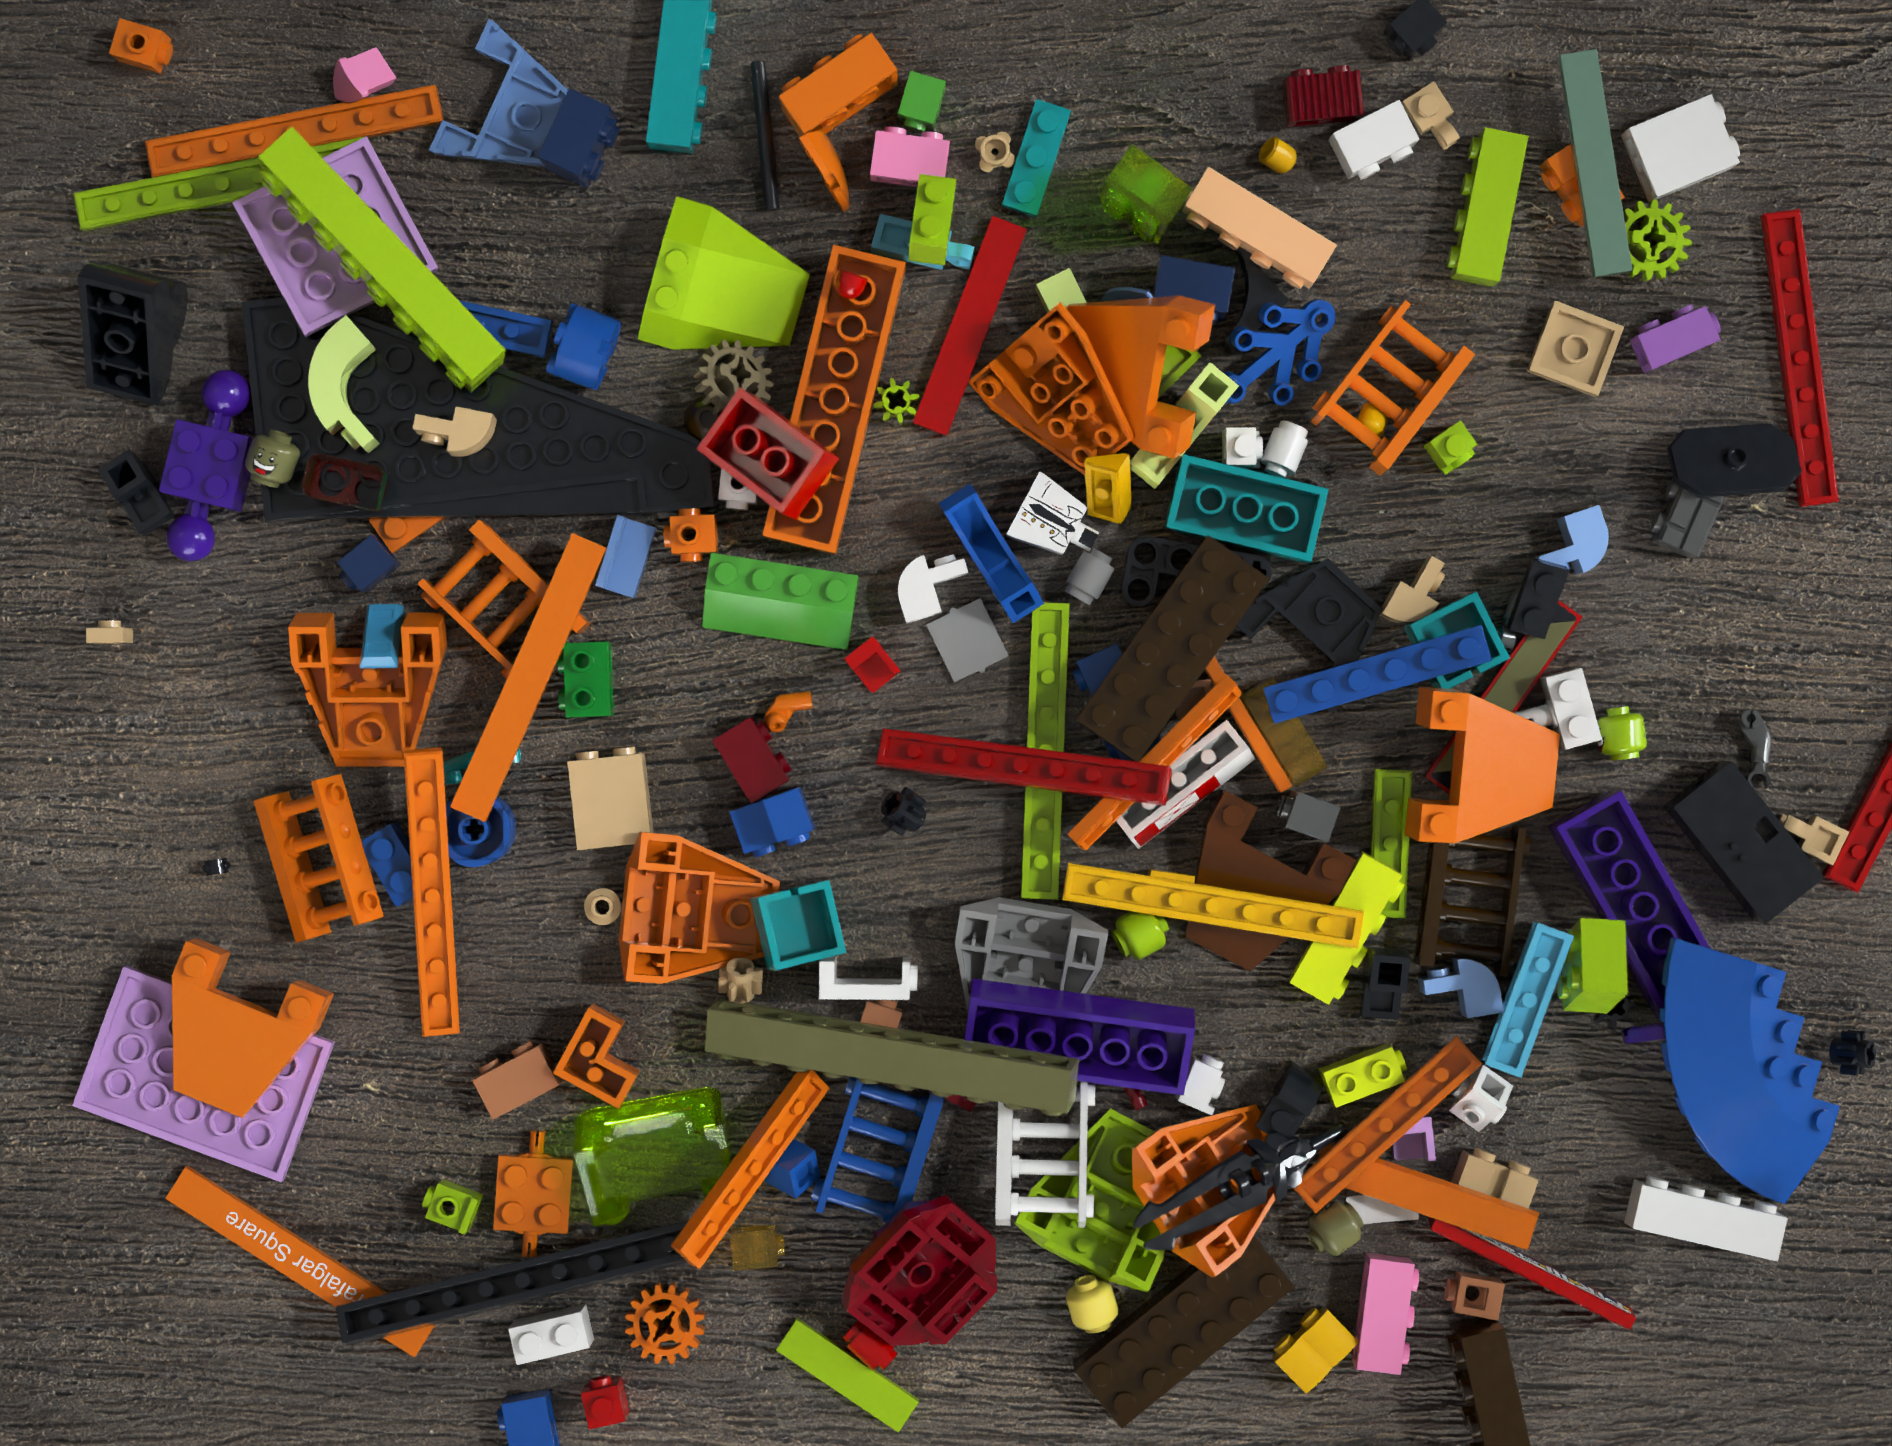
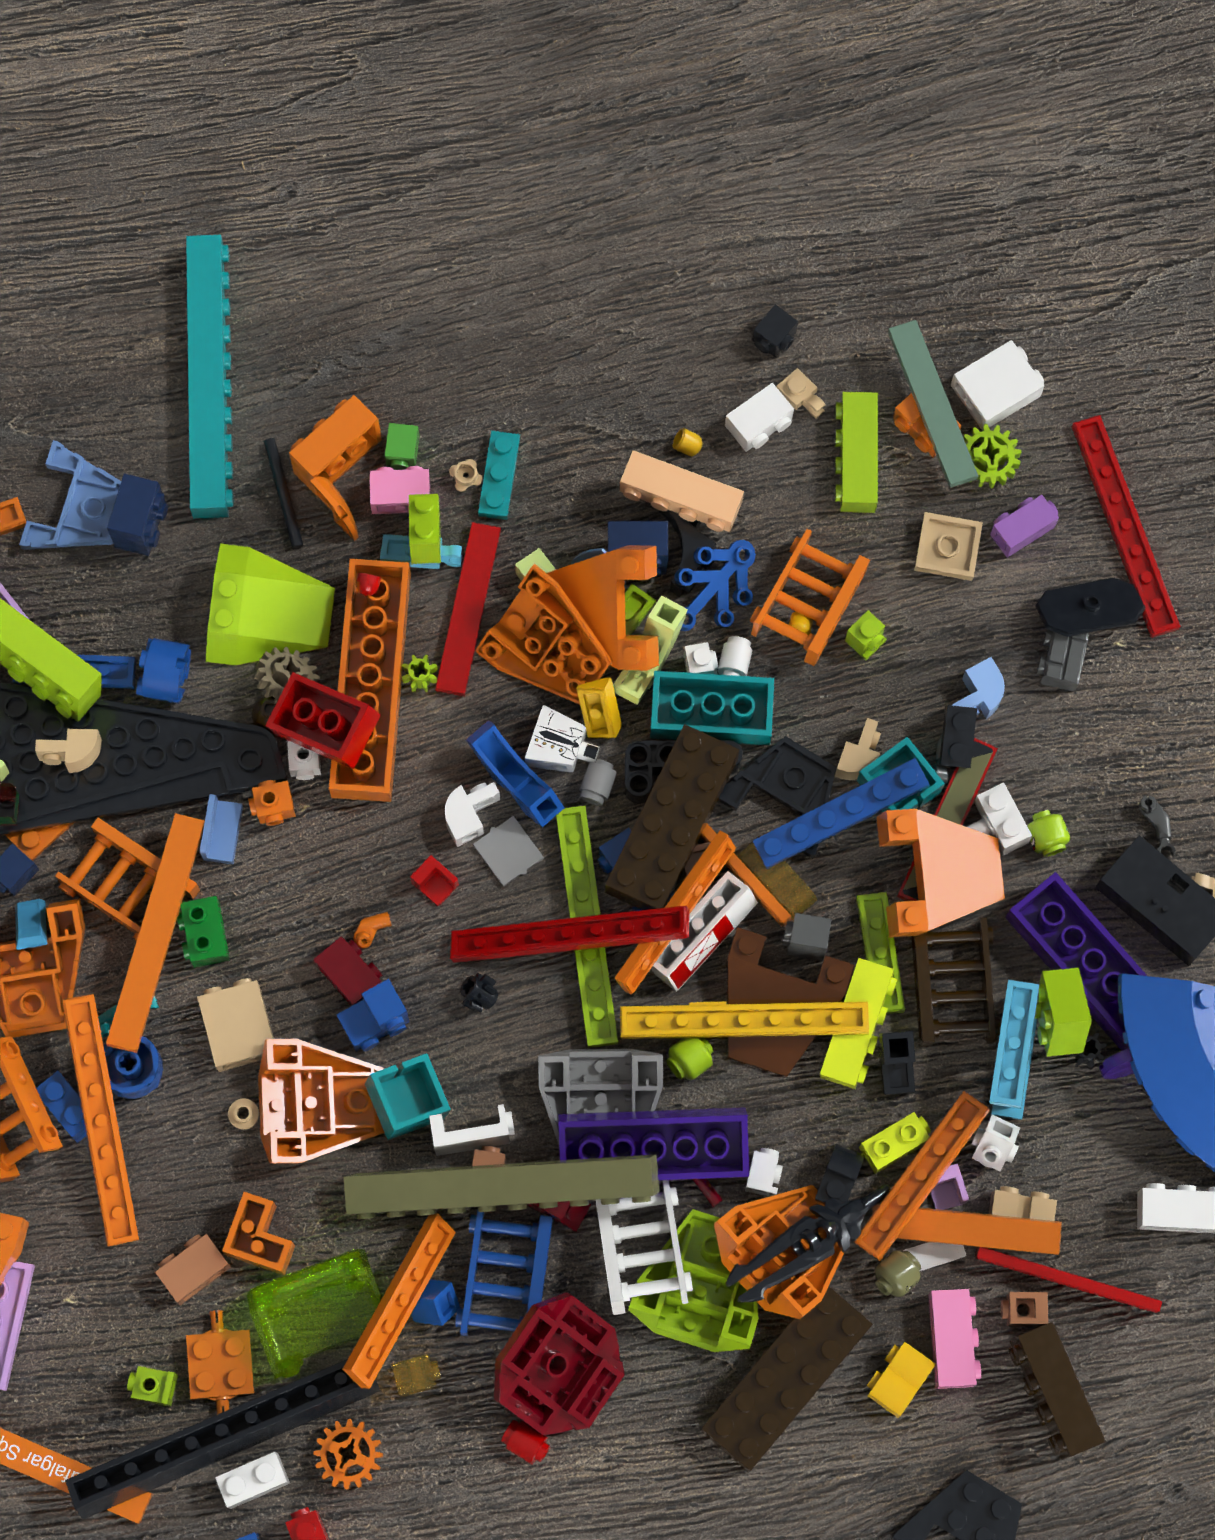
camera: 15 degrees left, 15 degrees down
(740, 980) = (367, 1153): tan gear -> none
(779, 601) = (351, 843): bright green slope -> none
(847, 1374) = (511, 1474): lime tile -> none
(1092, 1304) = (706, 1374): light yellow head -> none
(1144, 195) = (587, 481): clear neon green brick -> none
(1322, 97) = (713, 392): dark red brick -> none
(1475, 986) = (971, 1051): light blue brick -> none

